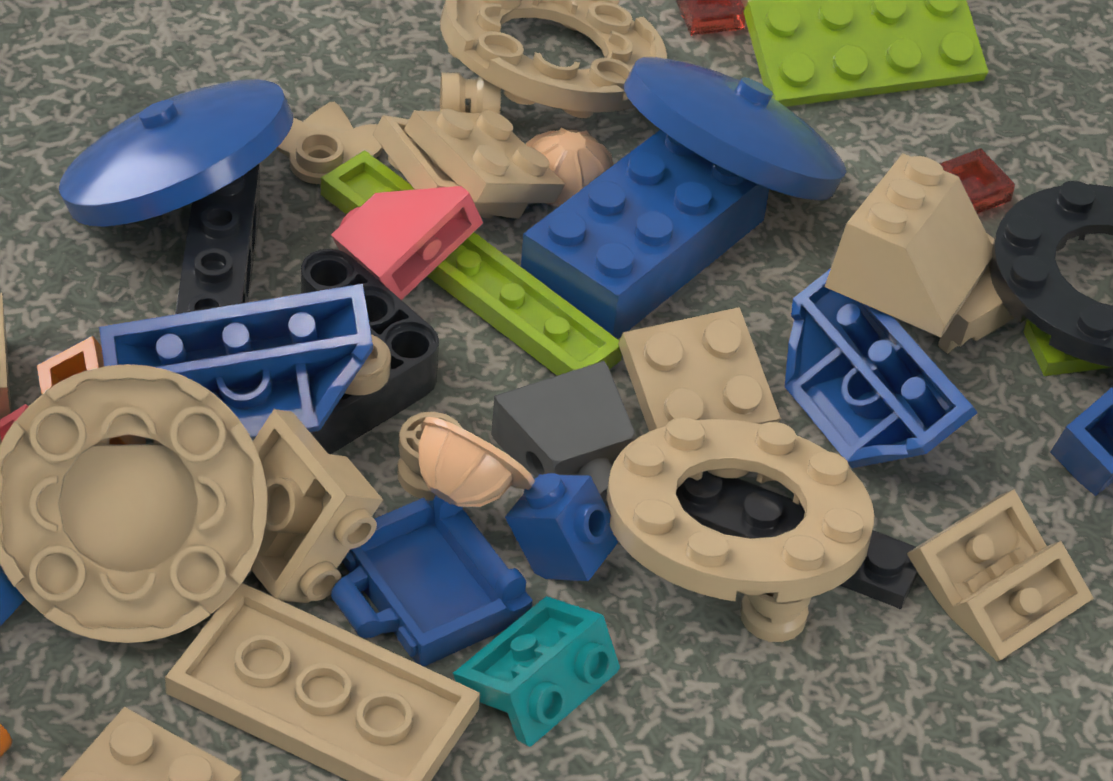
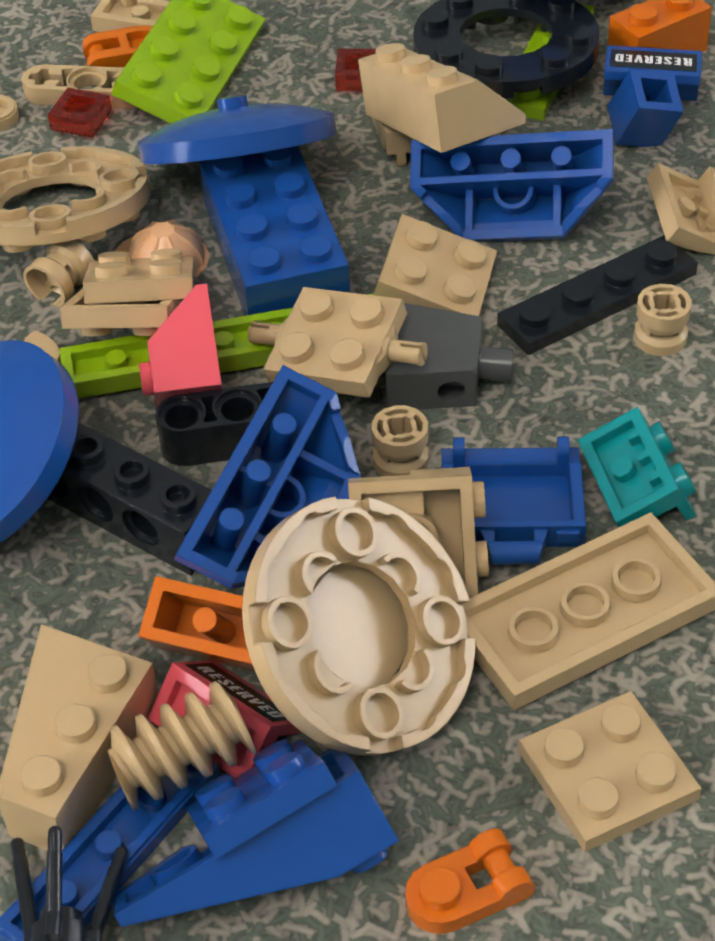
camera: 50 degrees left, 0 degrees up
(465, 467) = (466, 407): light nougat piece -> none
(505, 337) = (339, 340): none -> tan plate
(563, 527) = (533, 394): blue brick -> none
(673, 545) = (642, 323): tan plate -> none

